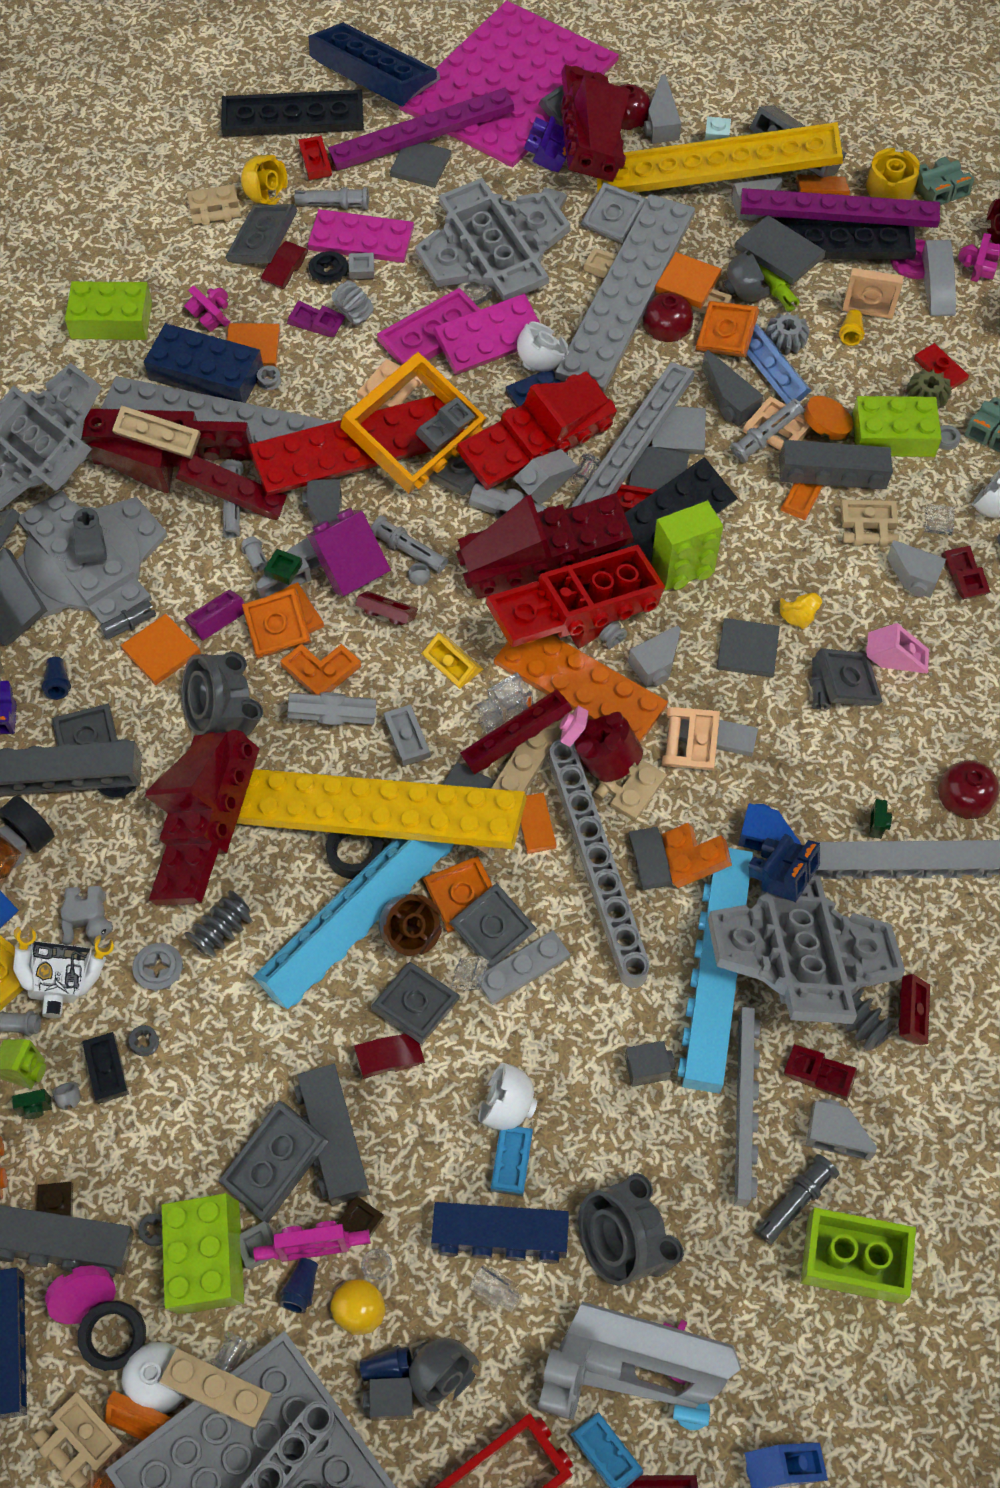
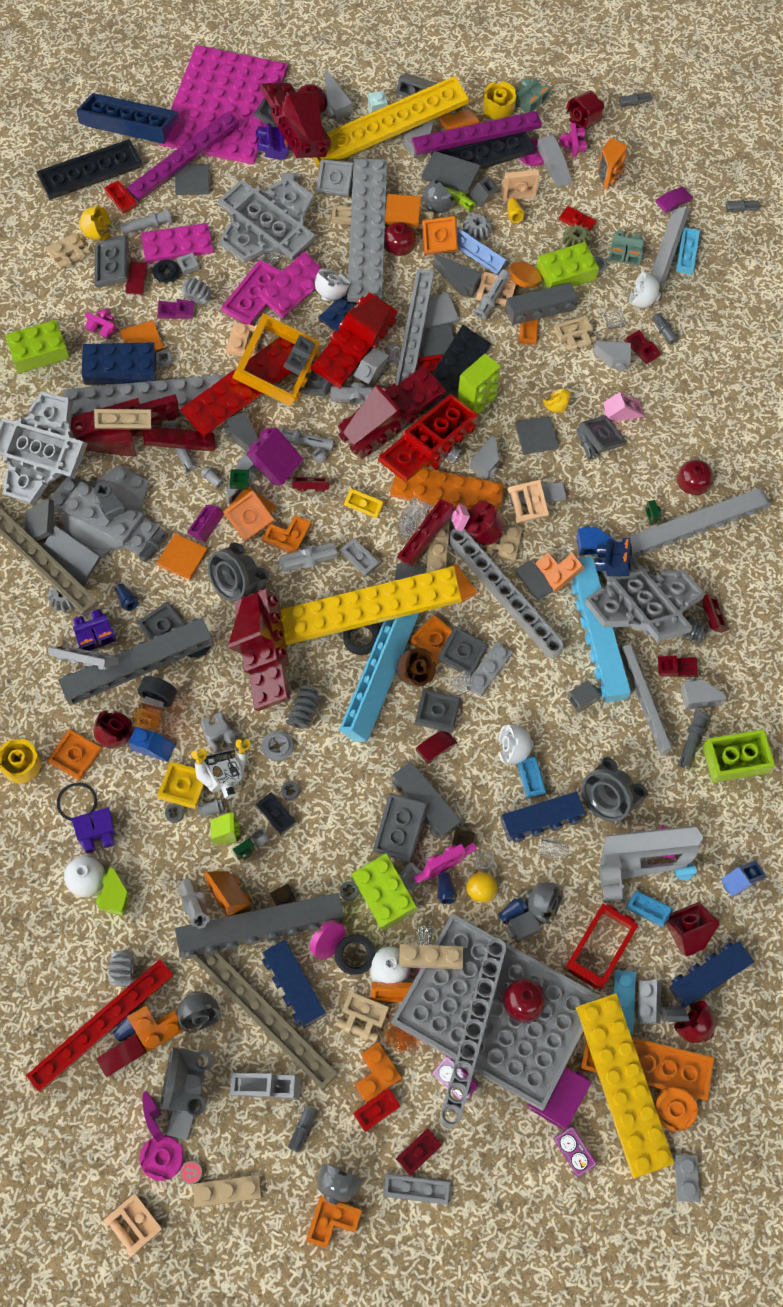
camera: 25 degrees left, 5 degrees up
(817, 288) = (484, 191): none -> dark grey brick

